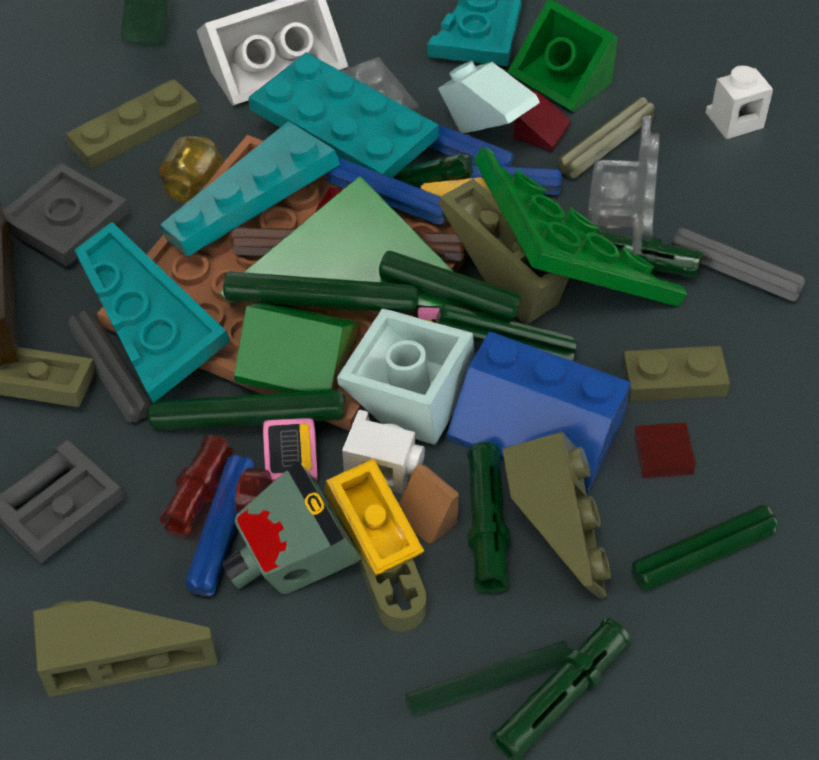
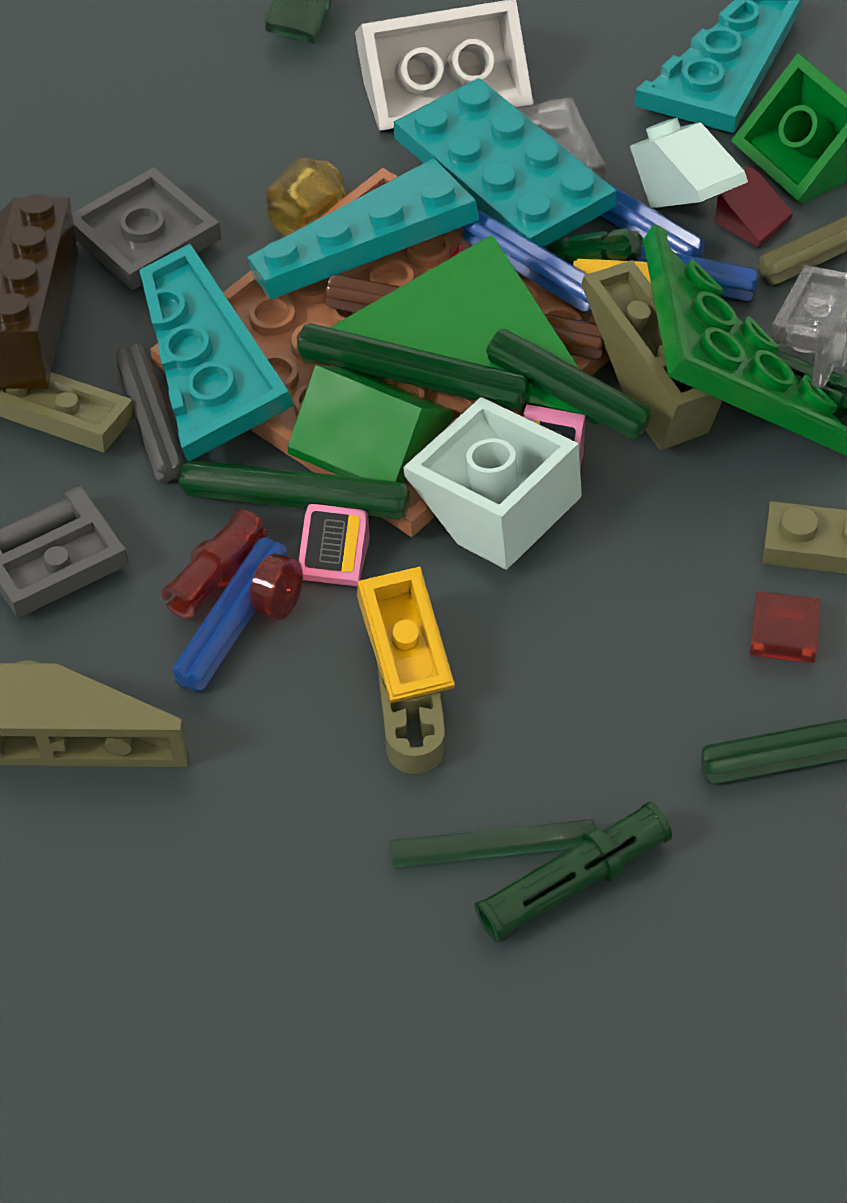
camera: 15 degrees right, 0 degrees up
(132, 123) = (253, 133): olive plate -> none
(290, 535) = (304, 637): sand green torso -> none
(389, 446) = (447, 564): white brick -> none
(429, 505) = (477, 636): medium nougat slope -> none
(481, 324) = (631, 456): dark green axle -> none
(488, 533) = (539, 683): dark green pin -> none
(528, 394) = (642, 553): blue slope -> none
(551, 492) = (626, 649): olive slope -> none

